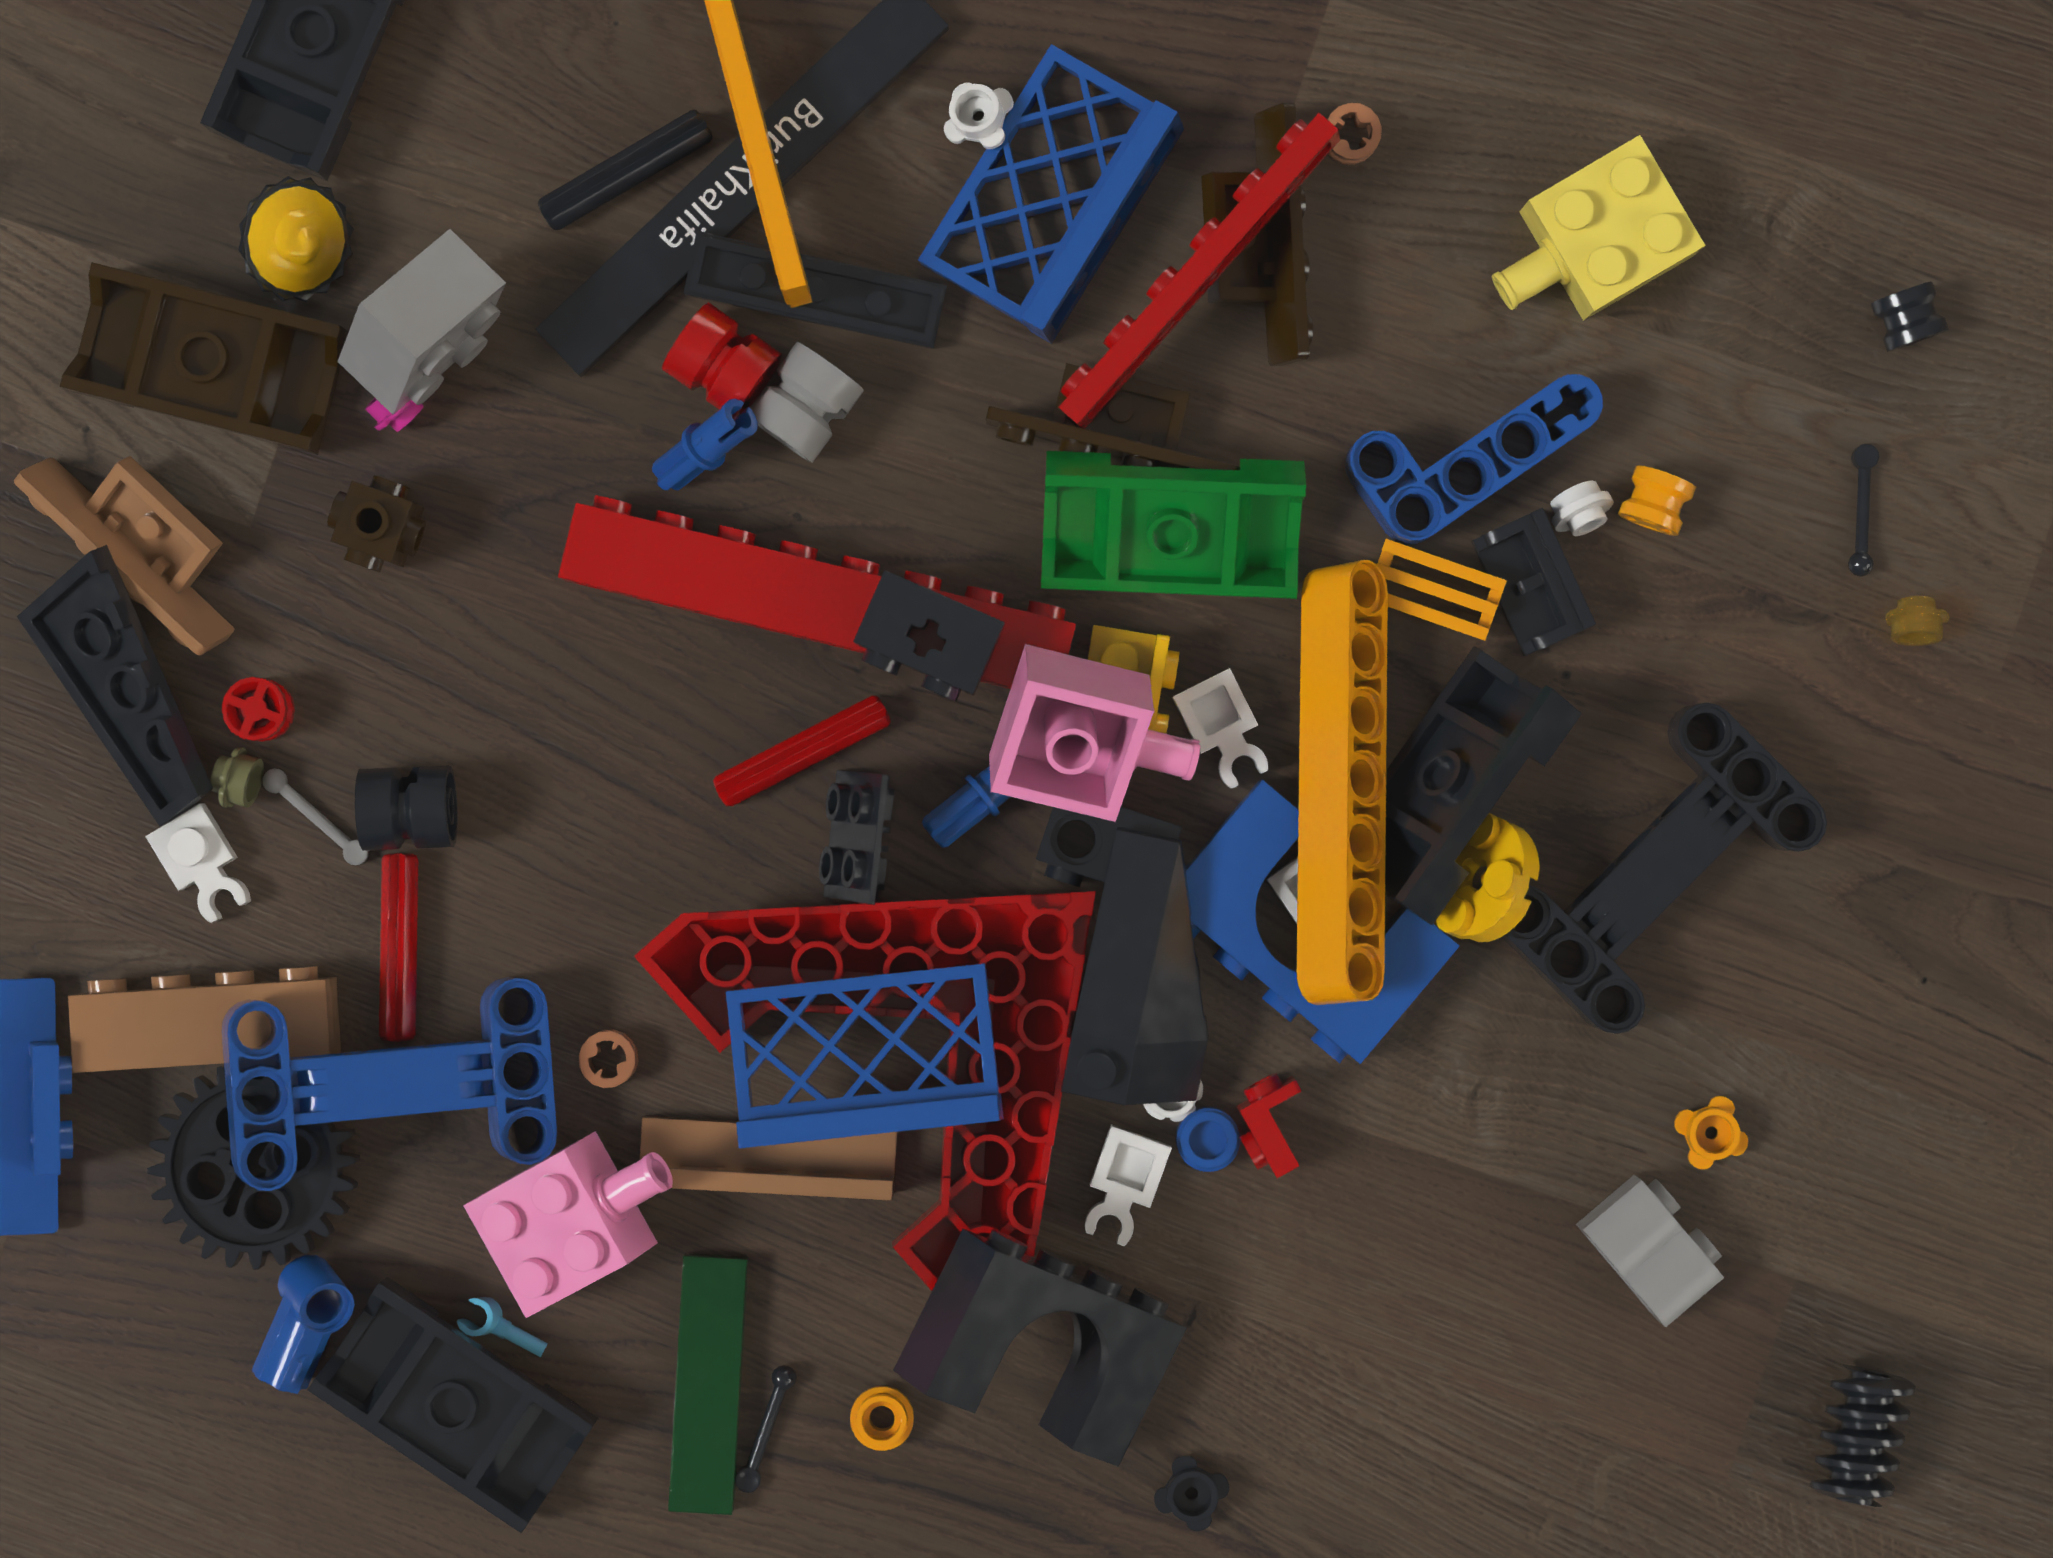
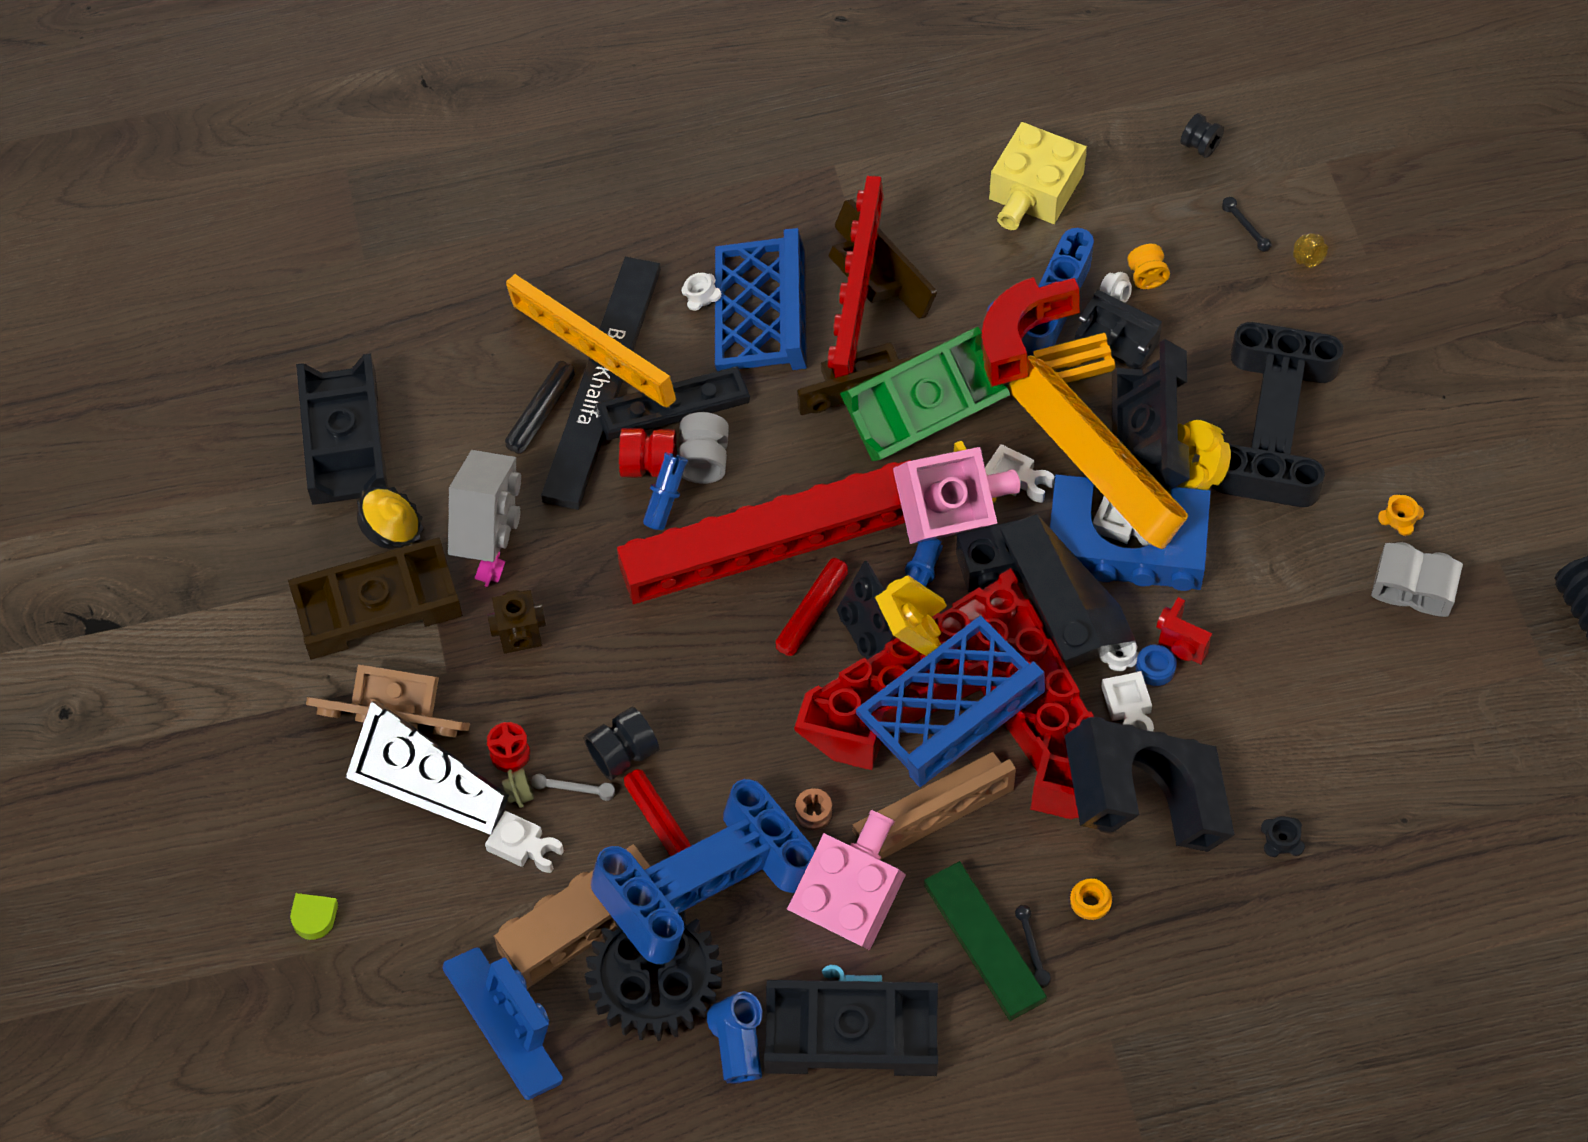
camera: 30 degrees left, 30 degrees down
(877, 918) = (909, 613): none -> yellow bracket
(905, 605) = (841, 494): black brick -> none
(1361, 496) = (1013, 316): none -> red arch
(1363, 118) = (891, 216): nougat bush -> none

